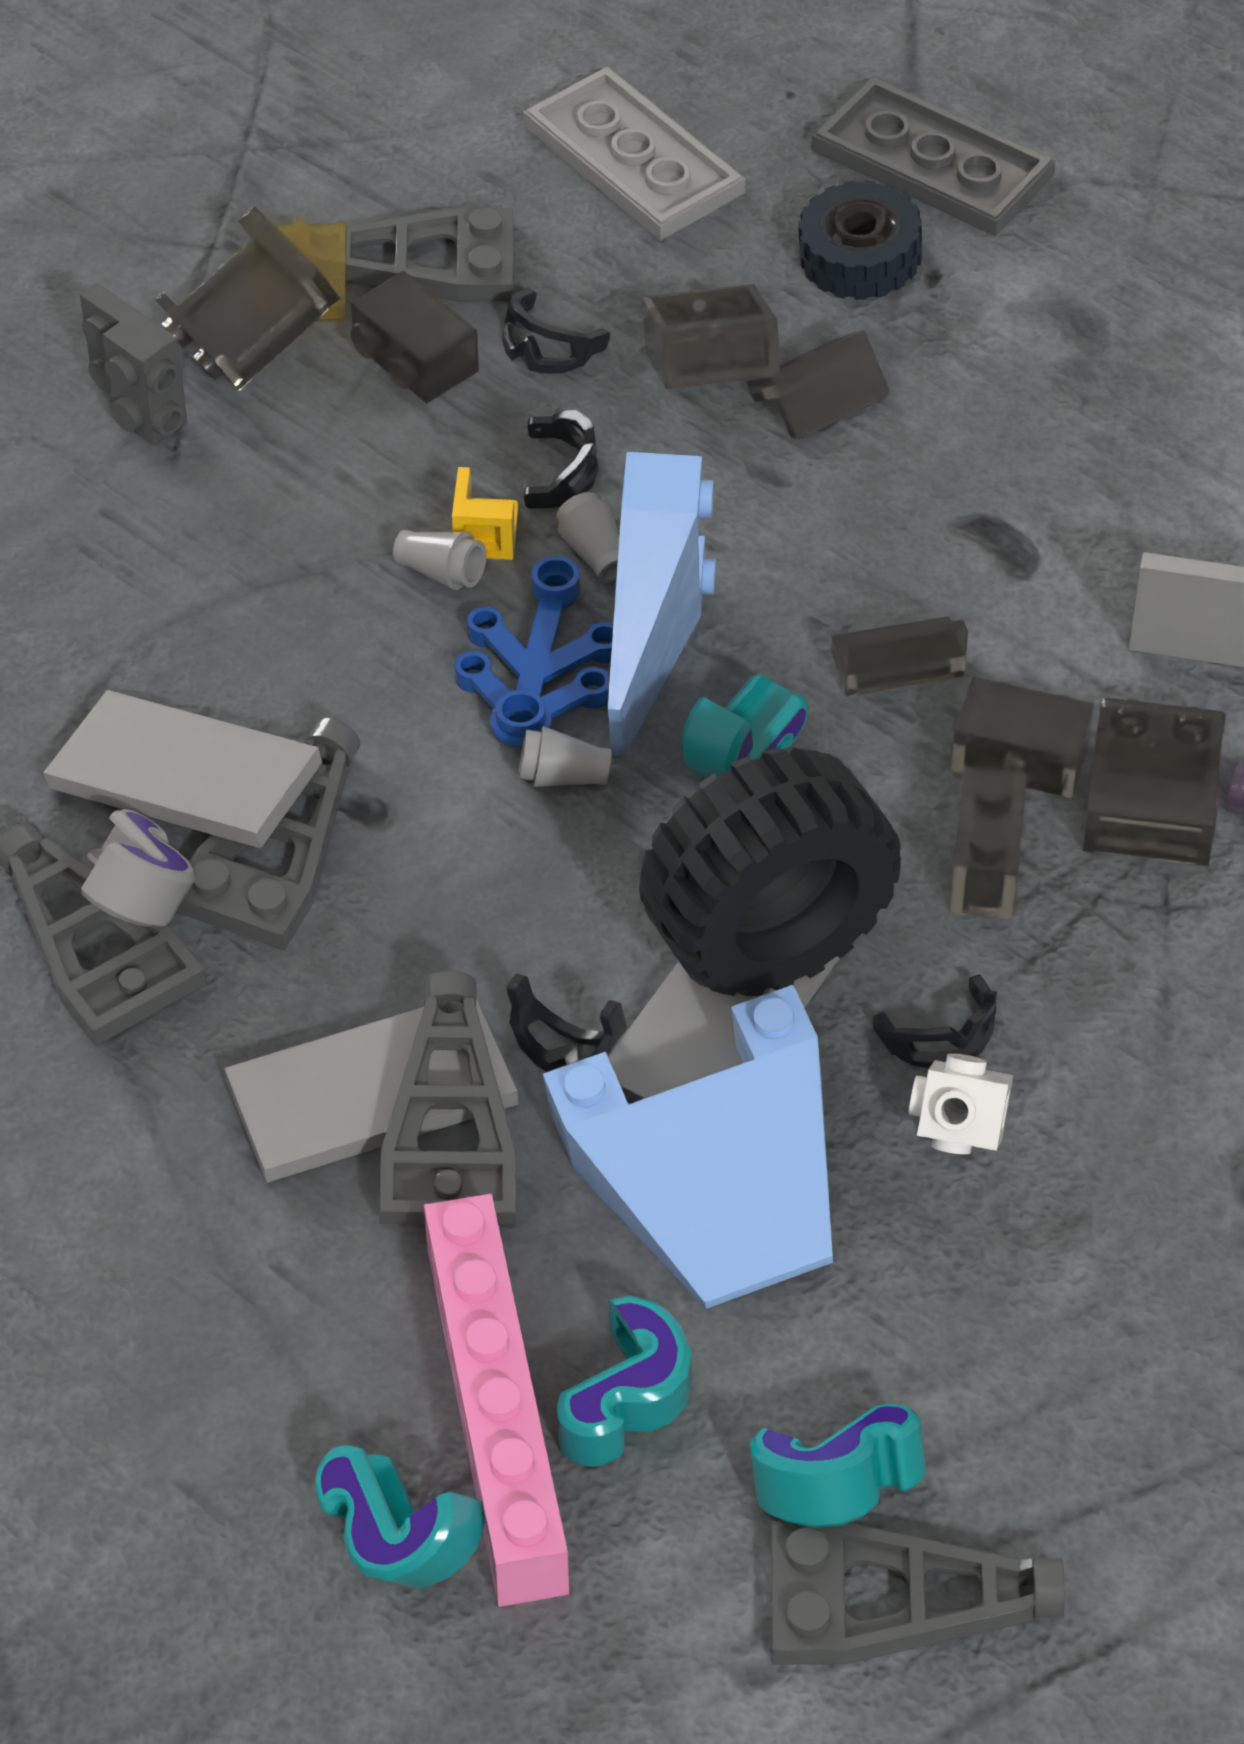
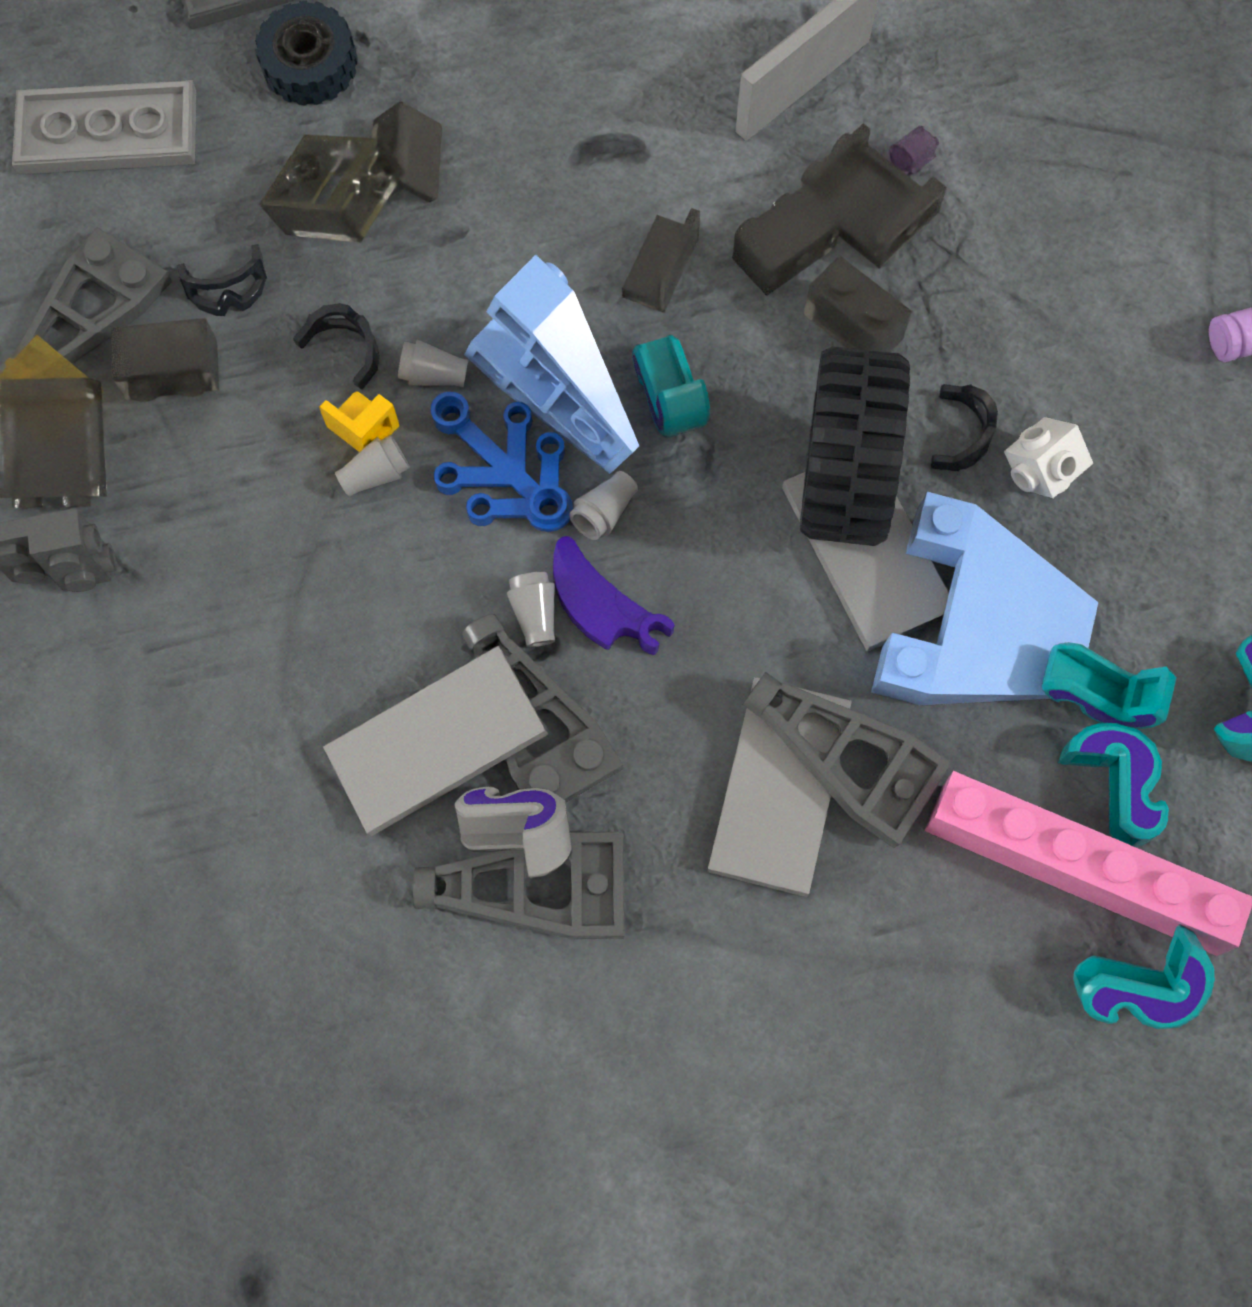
camera: 55 degrees left, 20 degrees up
(397, 765) = (534, 607): none -> light grey cone
(446, 819) = (598, 606): none -> dark purple piece
(528, 1009) = (861, 620): black helmet -> none
(719, 1296) = (1105, 689): none -> teal animal

